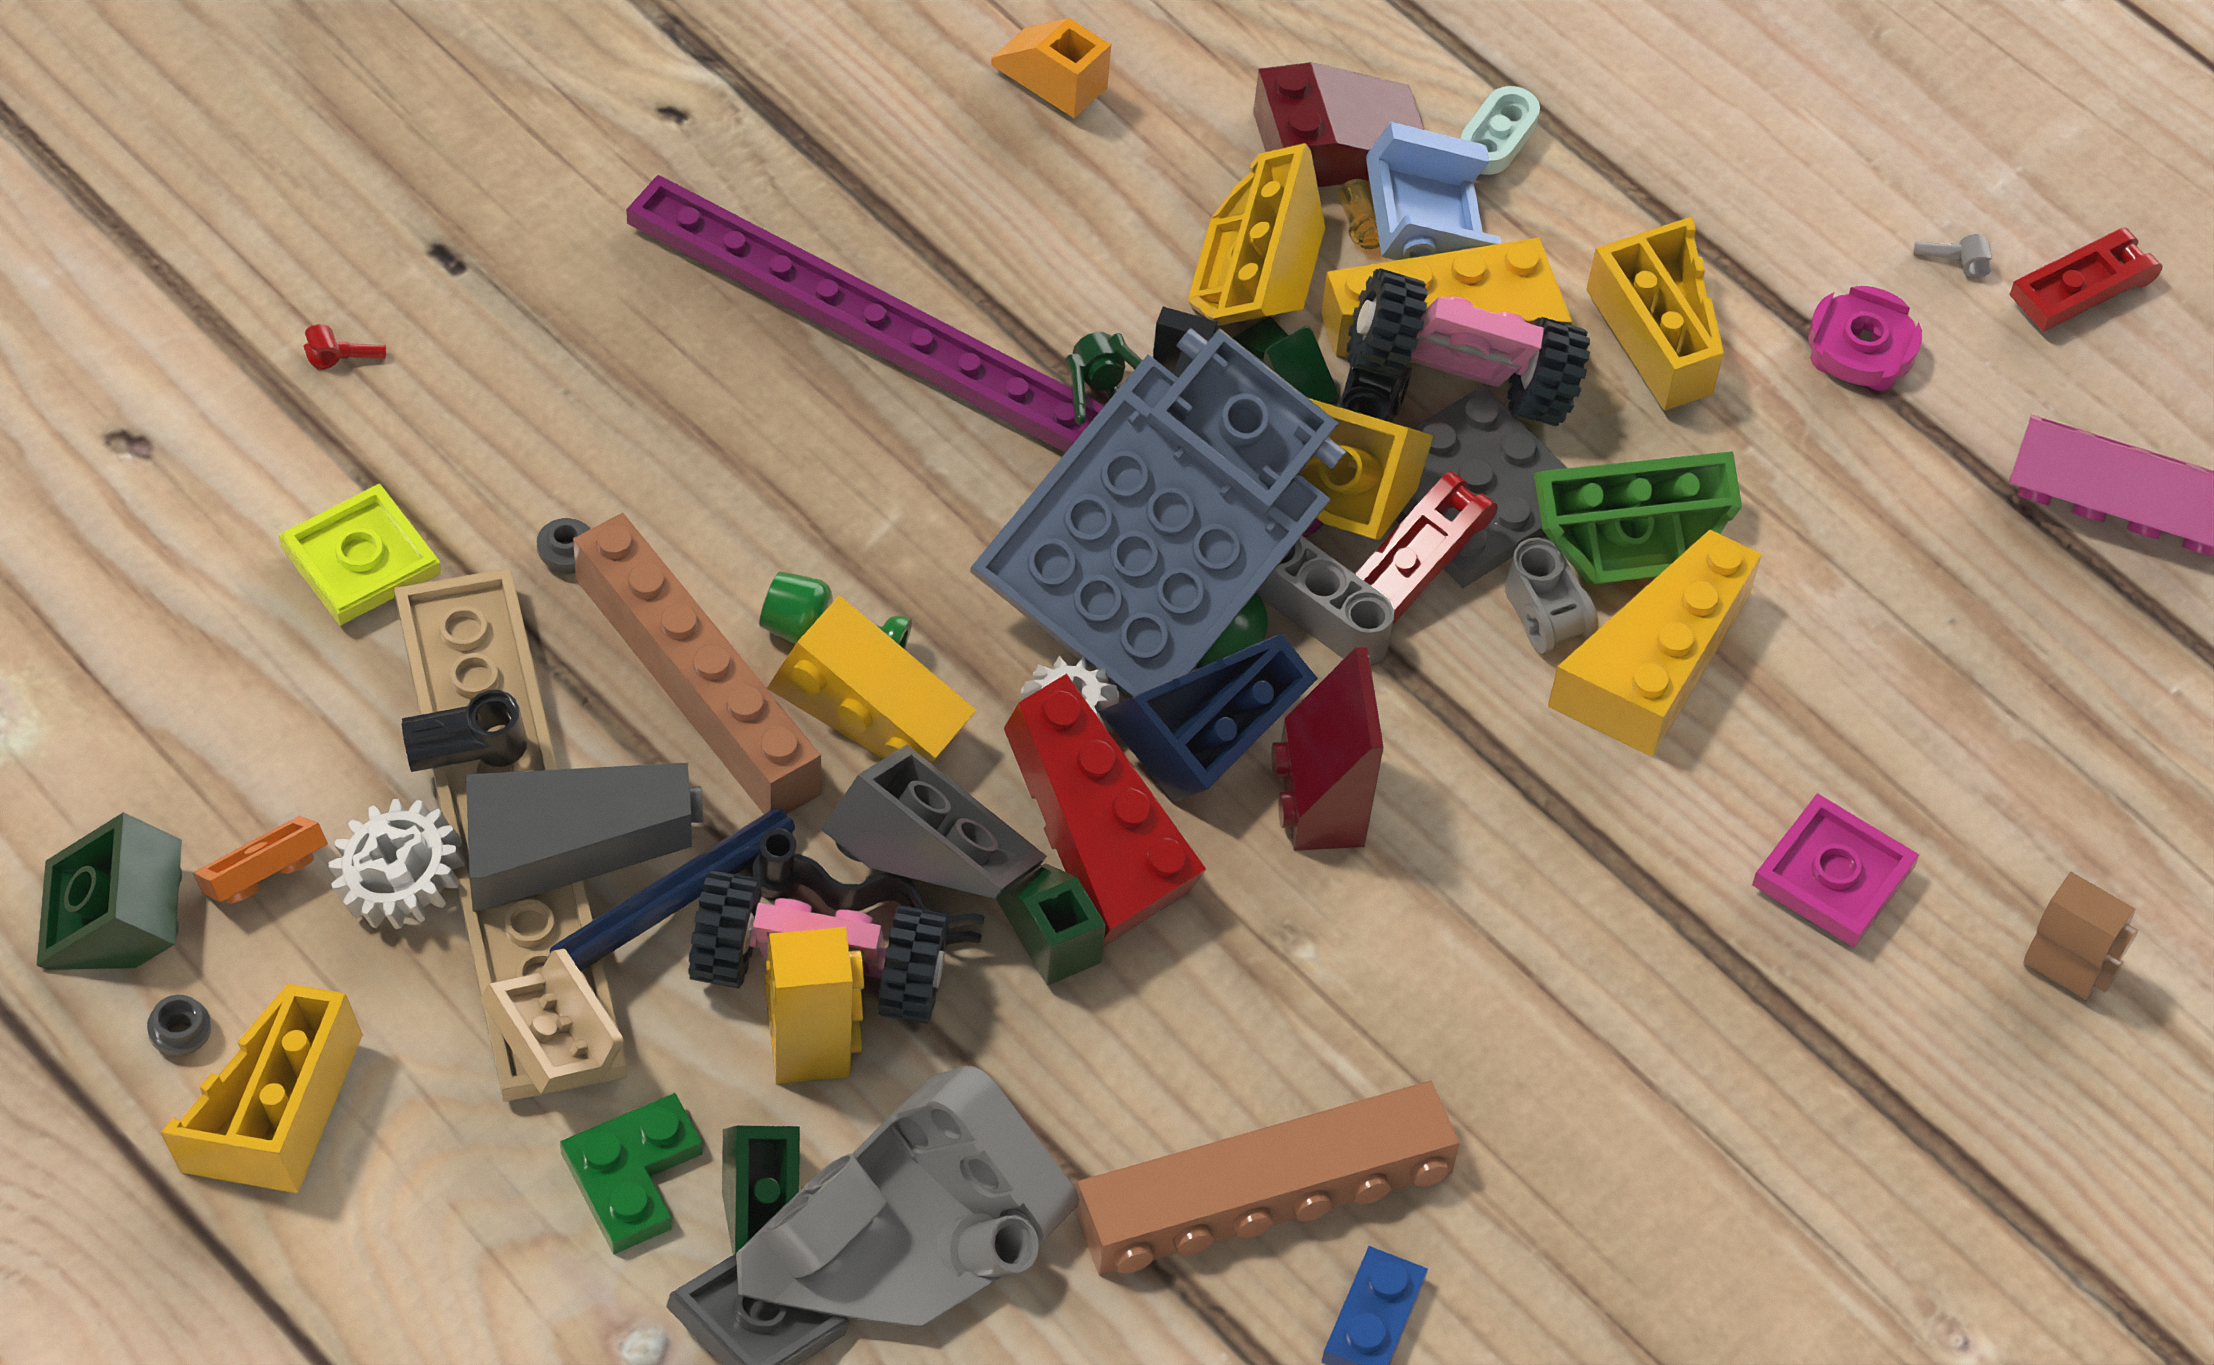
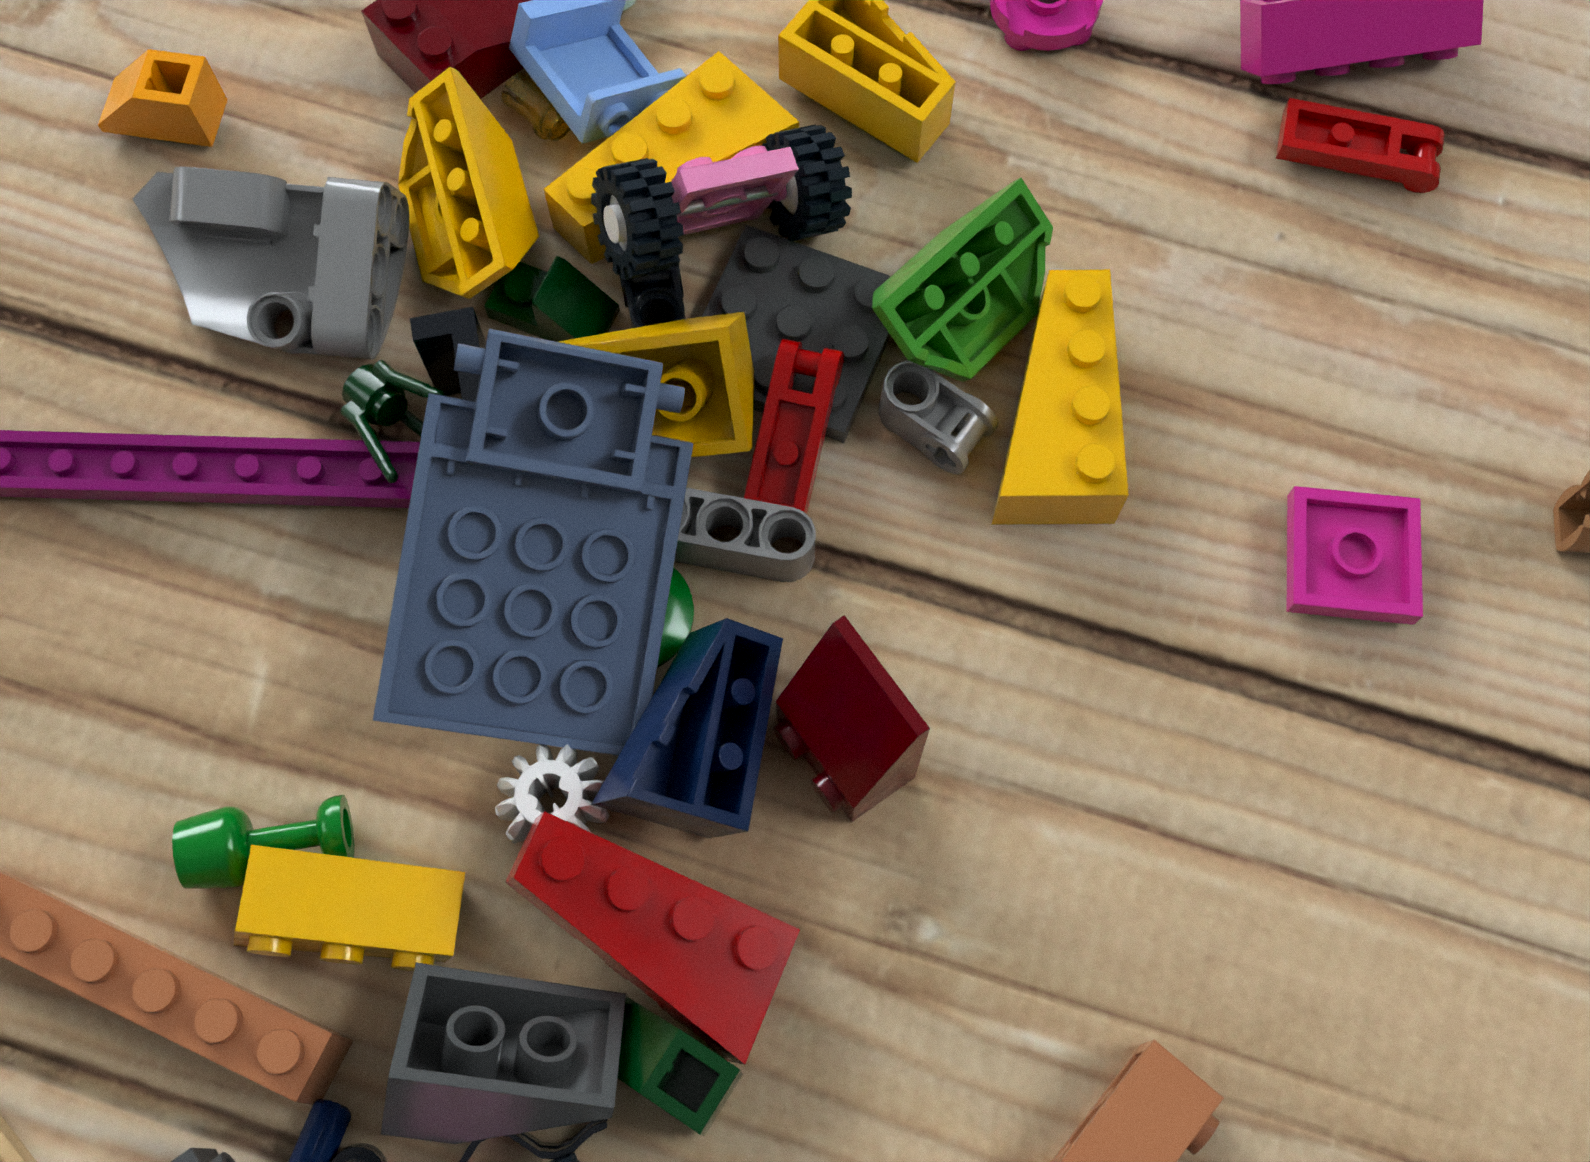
camera: 25 degrees left, 15 degrees up
(1071, 207) = (264, 246): none -> light grey panel
(2069, 580) = (1361, 144): none -> red plate

